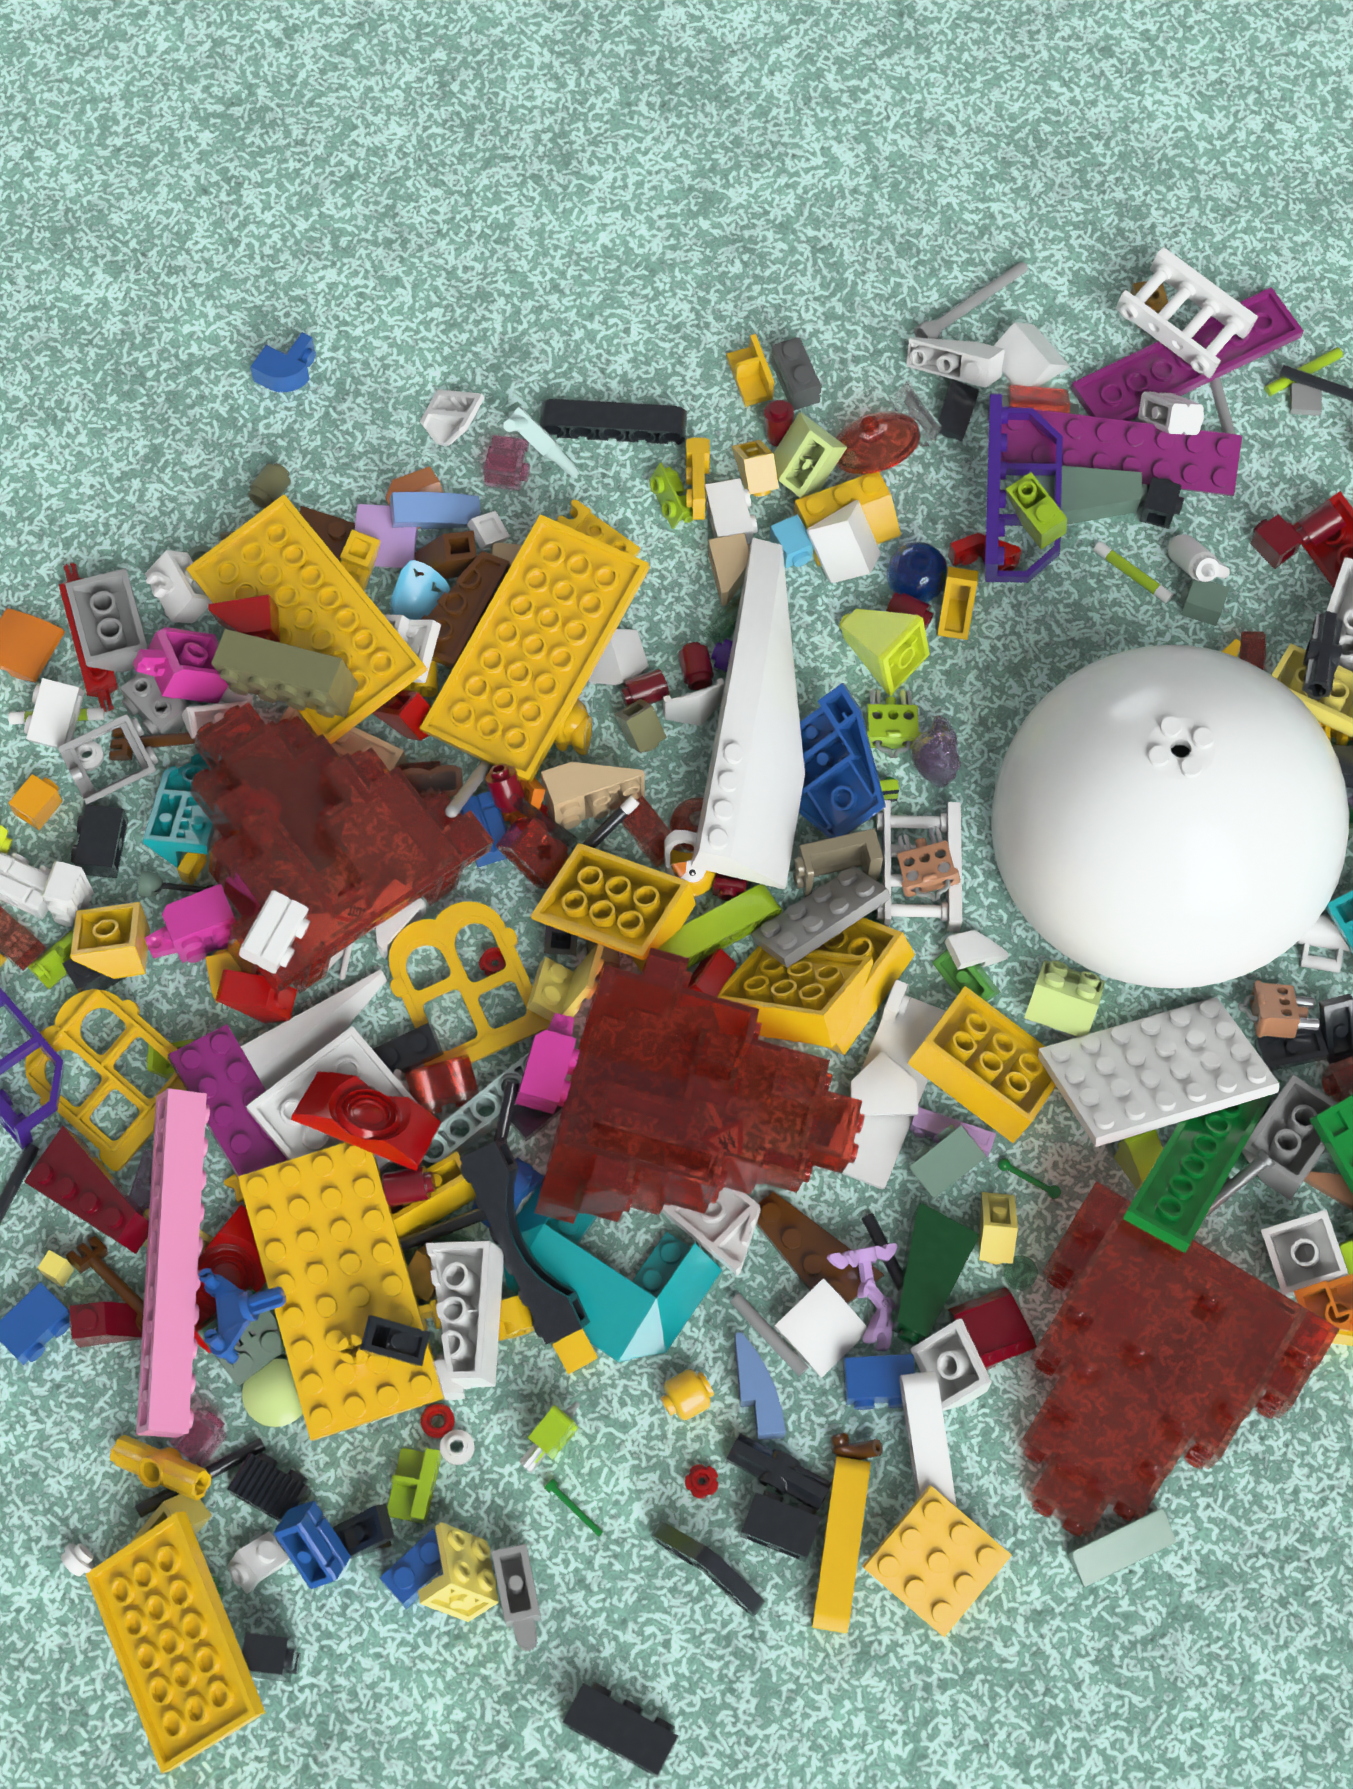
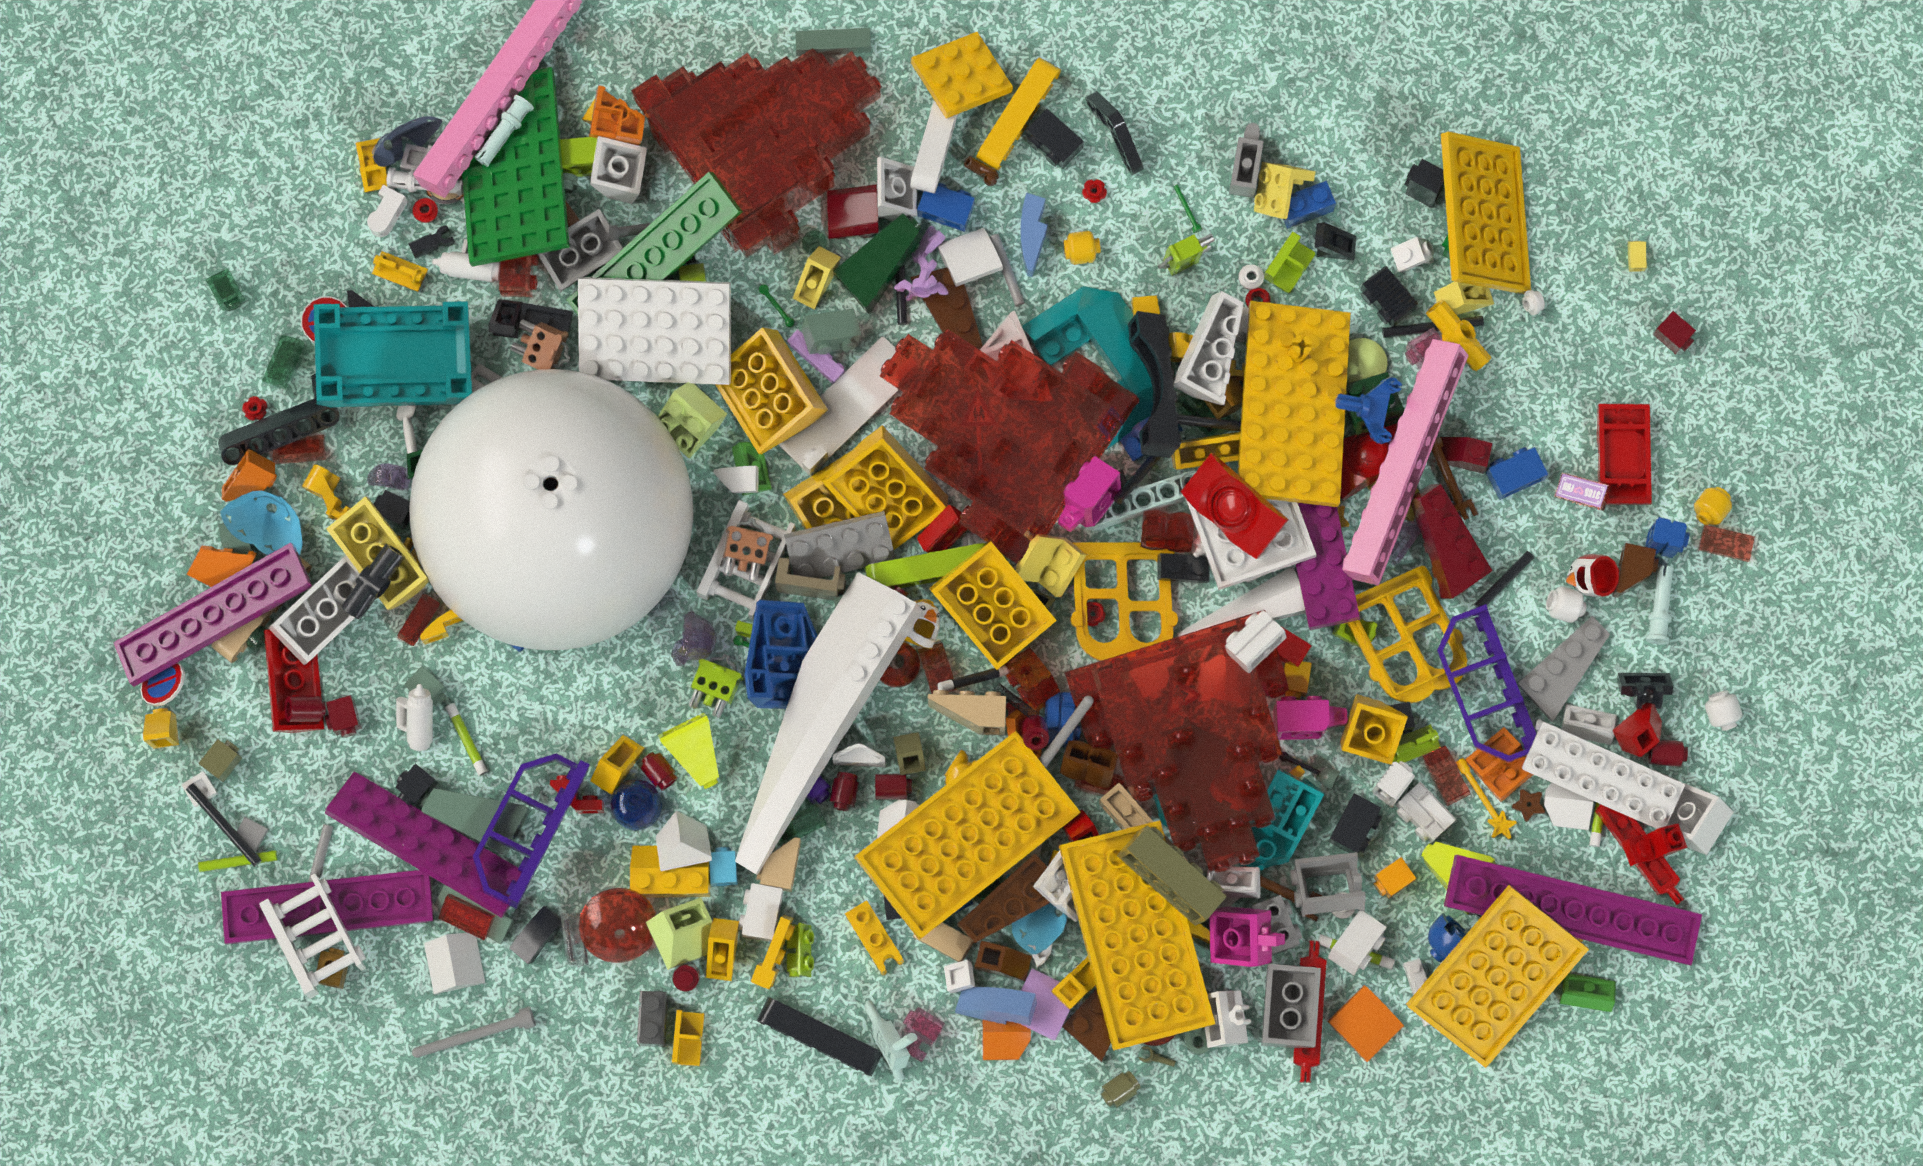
camera: 155 degrees left, 10 degrees up
(55, 1268) = (1488, 504): light yellow piece -> none
(250, 616) = (1182, 943): red slope -> none
(312, 1544) = (1373, 242): blue brick -> none
(394, 1341) = (1271, 338): black slope -> none
(408, 1186) = (1224, 448): dark red brick -> none
(450, 415) = (948, 1096): white slope -> none
(621, 1728) = (1211, 56): black brick -> none
(779, 1471) = (1040, 174): black piece -> none
(885, 1089) = (853, 400): white slope -> none
(957, 360) = (512, 975): white slope -> none
(1037, 511) = (527, 791): lime slope -> none
(1171, 413) = (371, 851): white brick -> none

